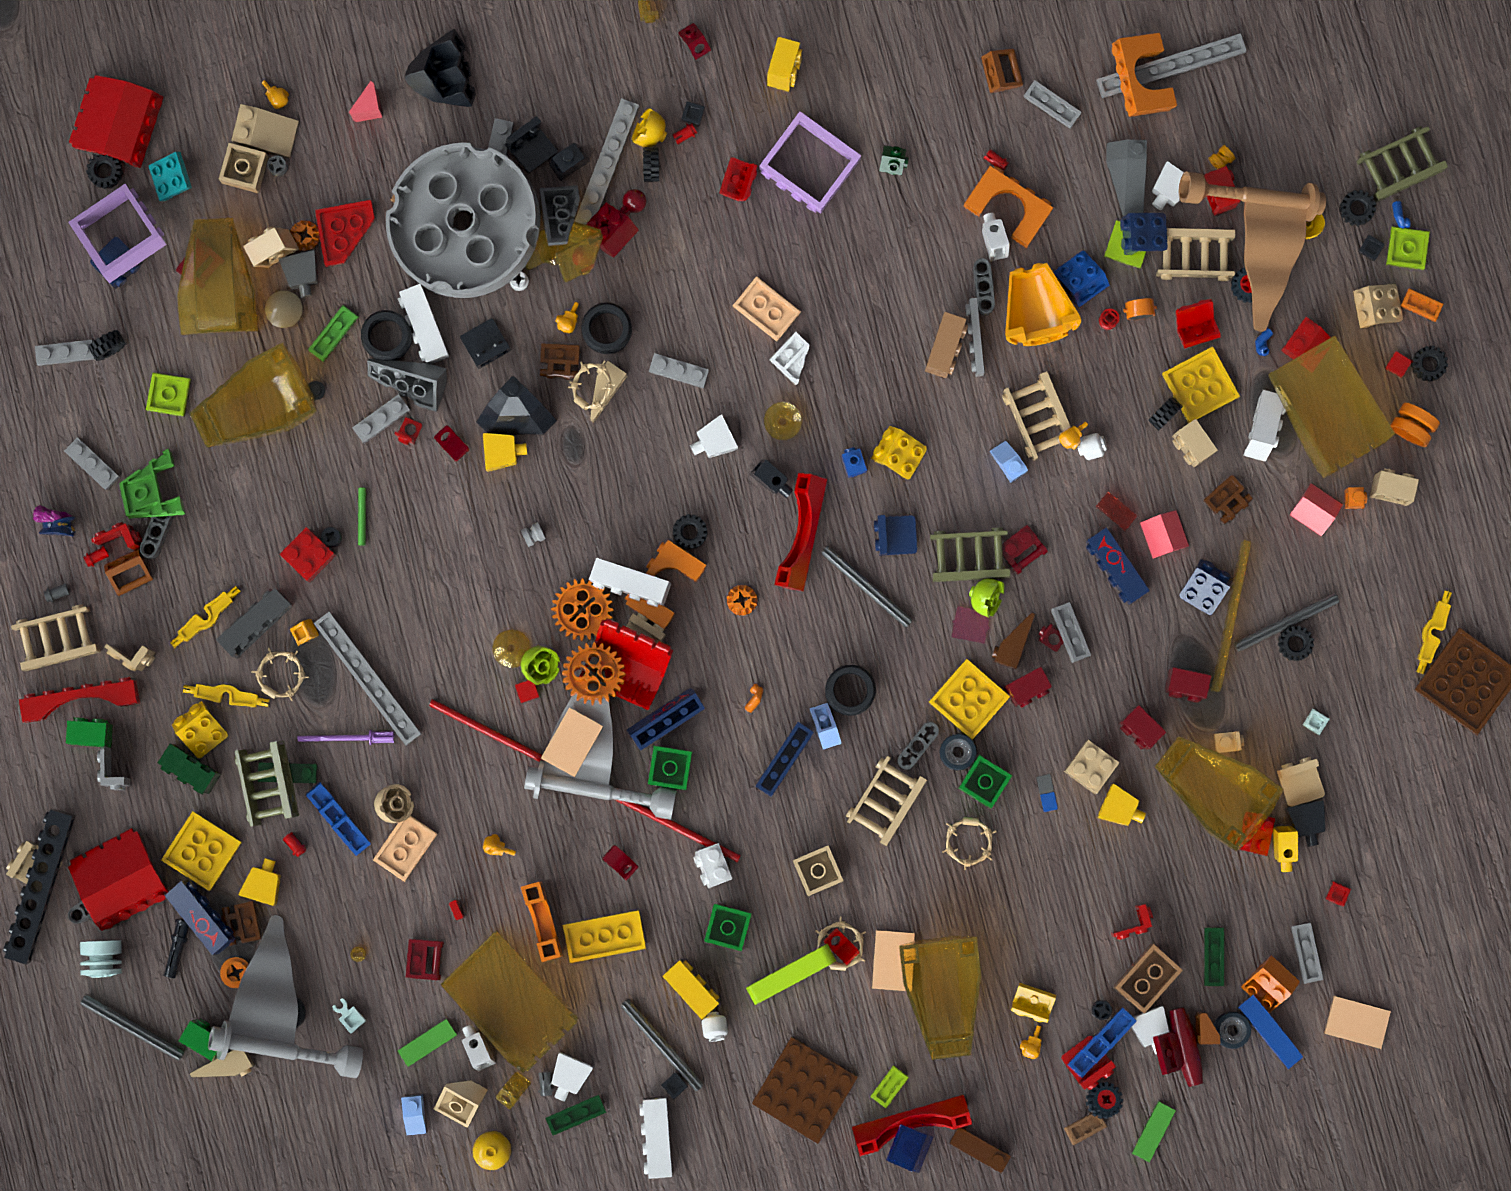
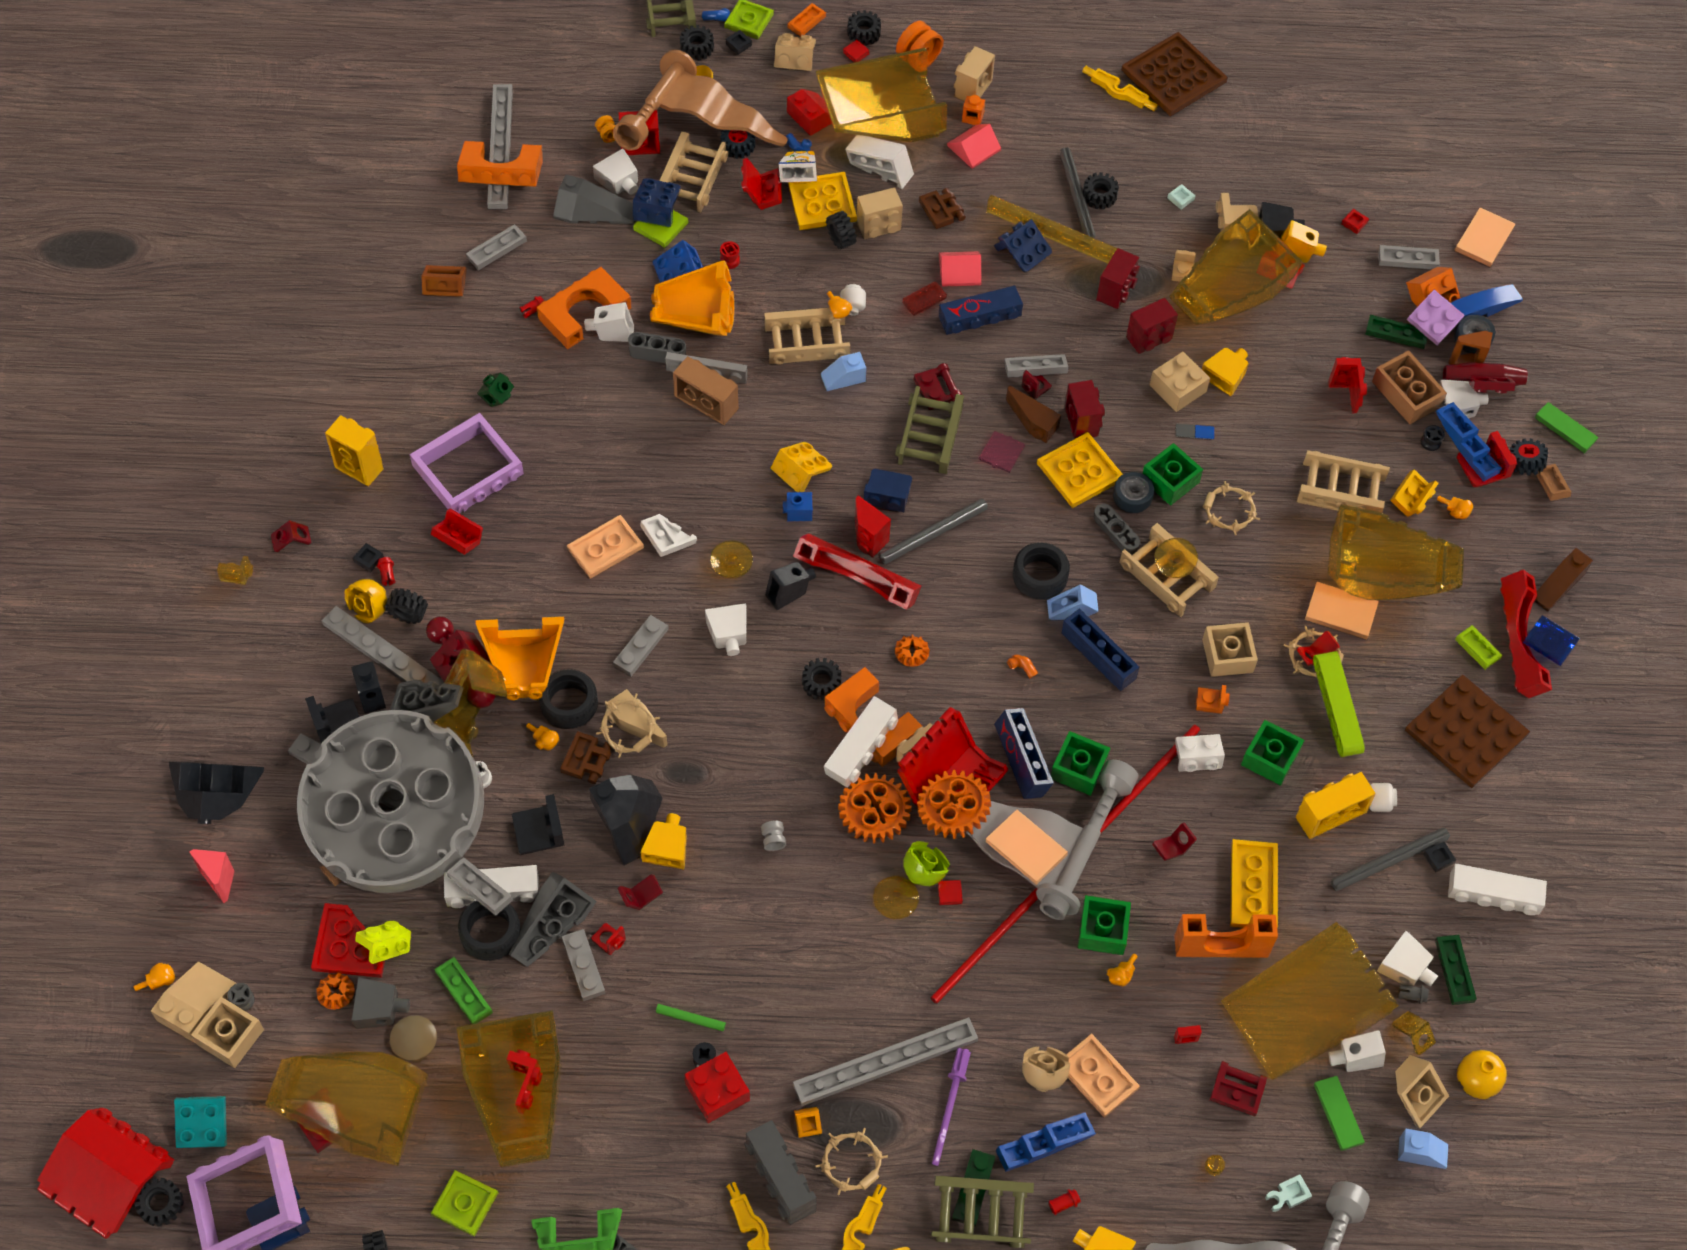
camera: 75 degrees left, 25 degrees down
(270, 246) = (335, 1022): tan brick -> none
(272, 407) = (522, 1062): none -> red bracket
(351, 258) = (385, 941): none -> neon yellow bracket
(411, 316) = (479, 886): none -> light grey plate
(528, 822) = (1104, 925): none -> green brick
(627, 276) = (522, 655): none -> light orange cone
(769, 865) = (1212, 700): none -> orange bracket
(844, 530) = (871, 527): none -> red slope
(883, 799) = (1176, 549): none -> clear yellow dish
(986, 596) = (977, 424): lime cylinder -> none
(1008, 947) = (1332, 499): none -> tan fence
(1140, 309) = (729, 225): orange piece -> none
(1229, 352) = (798, 167): none -> white torso
(1233, 989) = (1435, 317): none -> lavender plate

